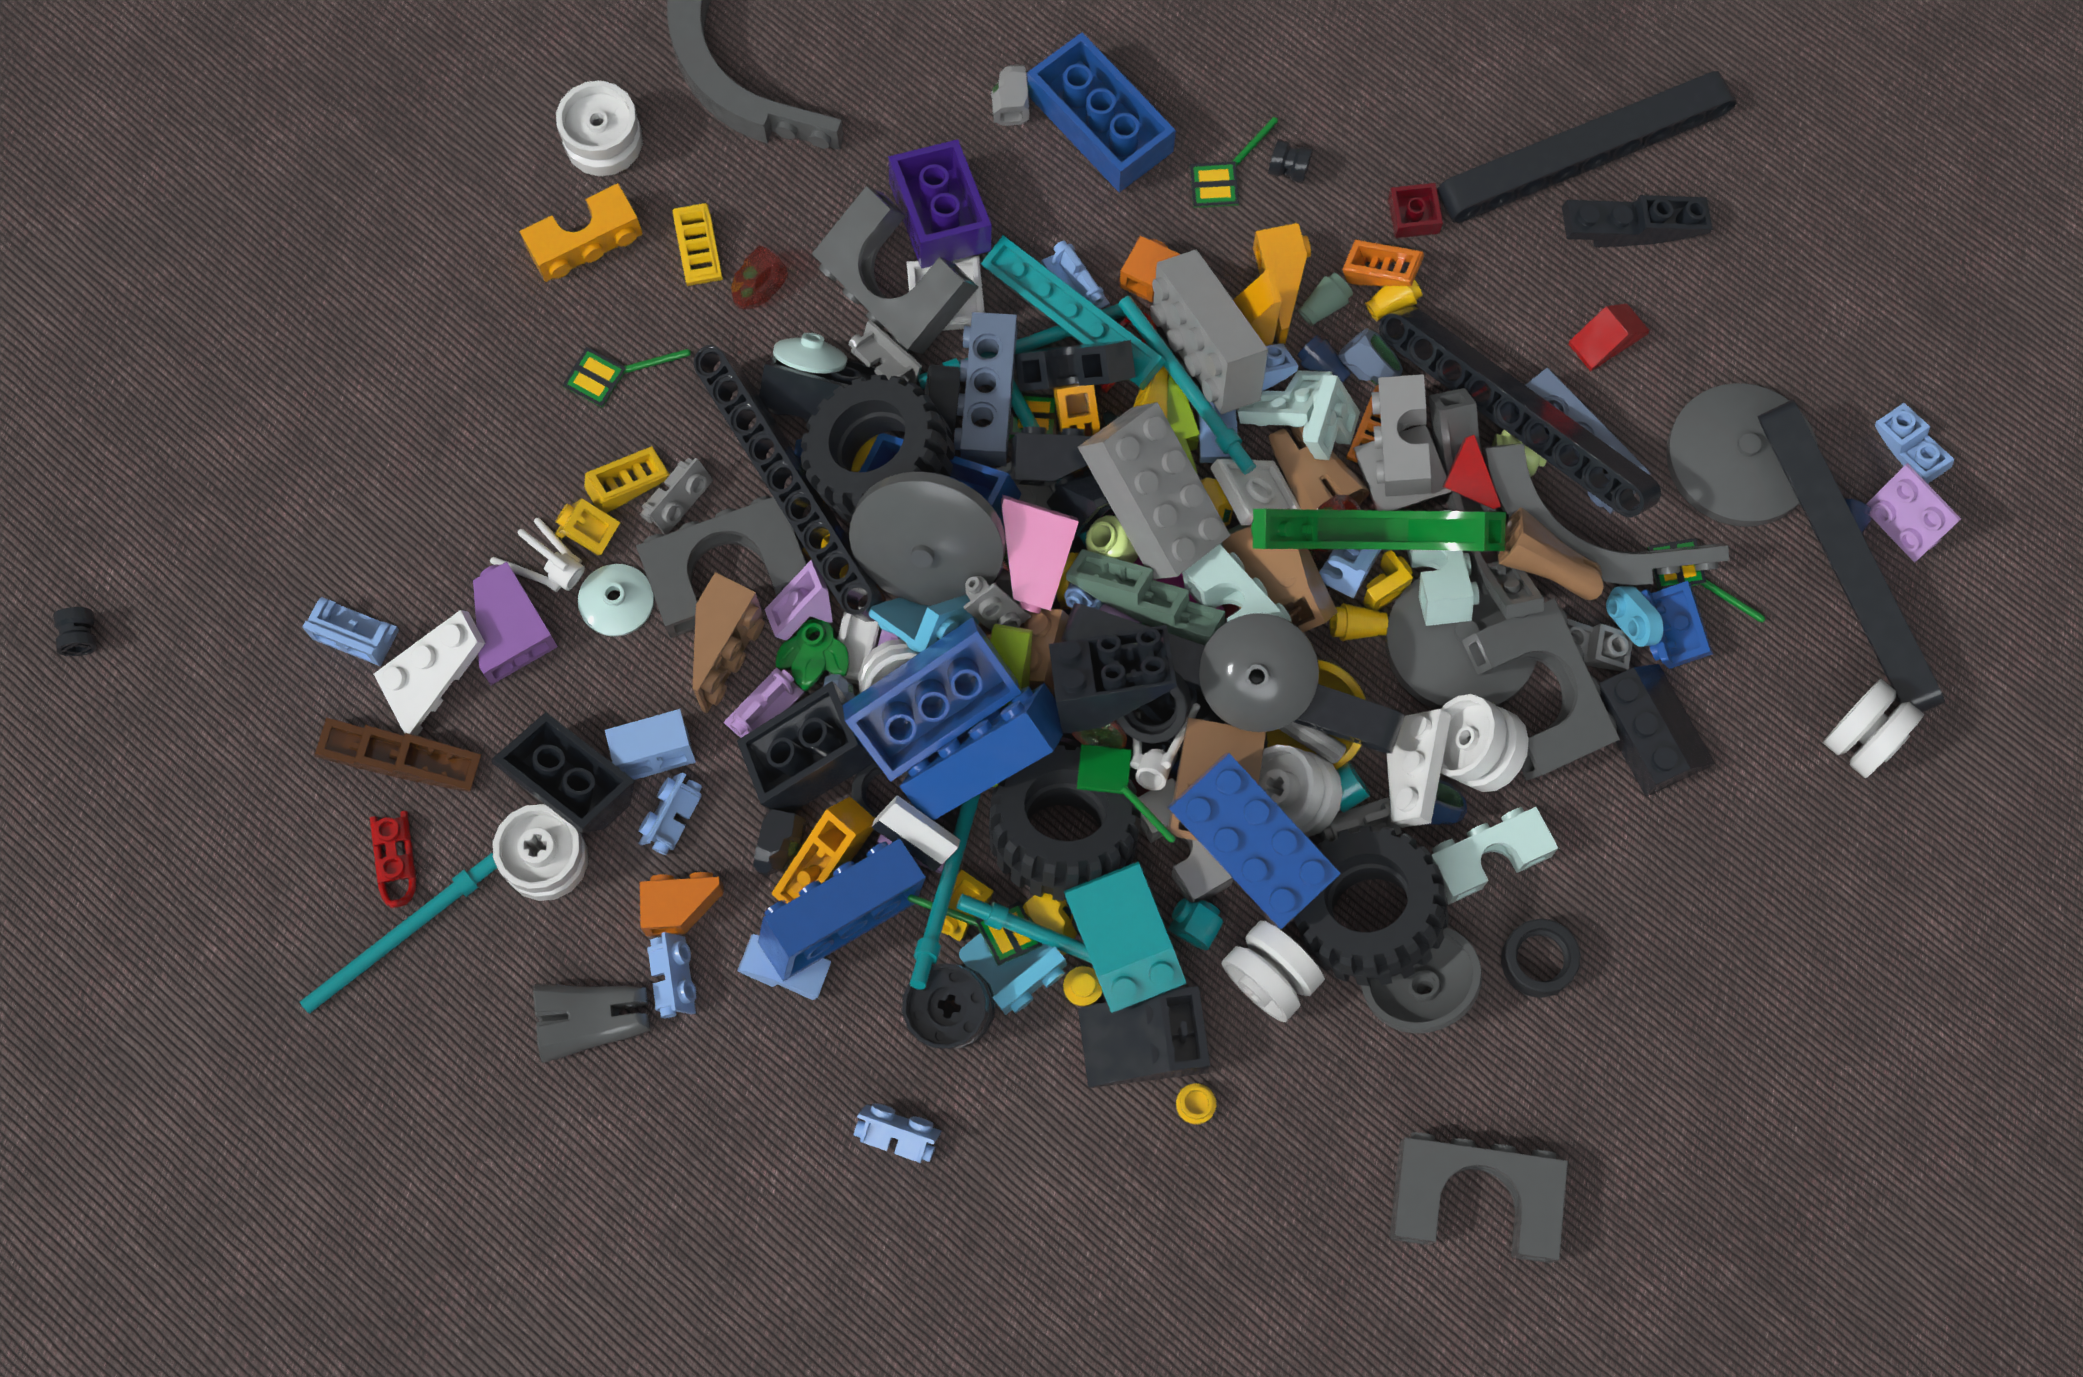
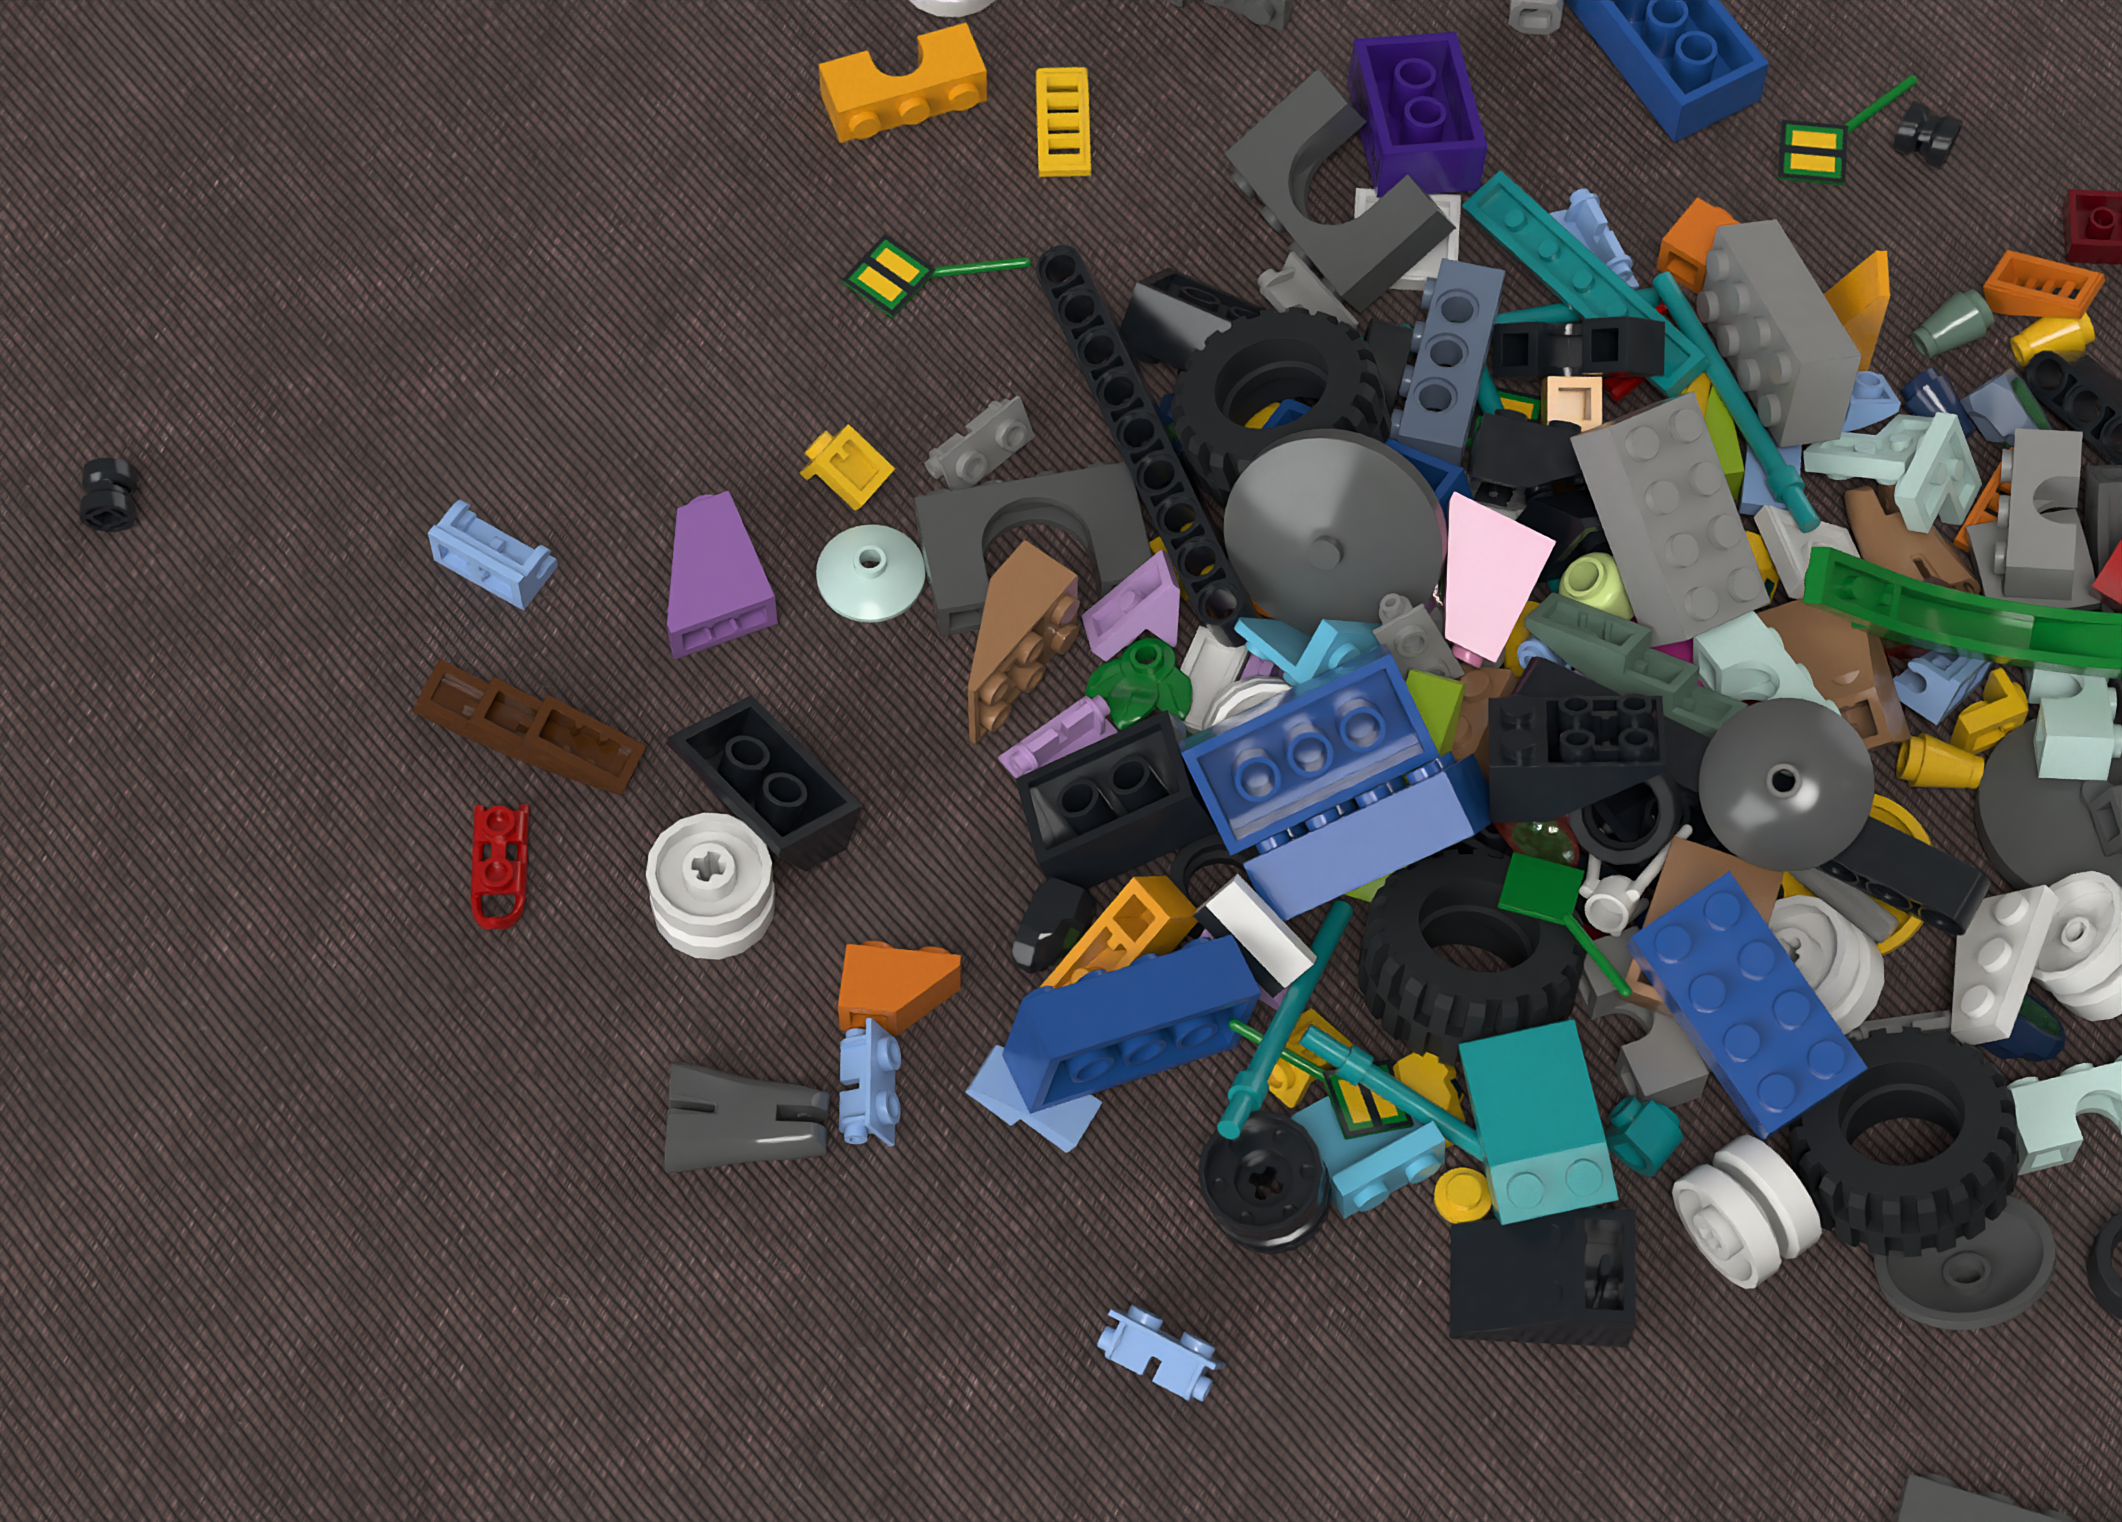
camera: 10 degrees right, 10 degrees down
(427, 668) = (590, 618): white wing -> none
(463, 883) = (592, 915): teal bar -> none
(562, 569) = (802, 514): white plant -> none
(631, 489) = (877, 421): yellow slope -> none
(651, 745) = (893, 769): light blue hinge -> none
(661, 826) = (886, 881): light blue hinge -> none
(758, 279) = (1142, 179): clear red rock -> none
(810, 354) = (1201, 283): light aqua dish -> none
(1196, 1104) = (1605, 1386): yellow plate -> none
(1287, 253) = (1910, 259): light orange slope -> none
(1353, 787) = (1899, 985): teal plate -> none

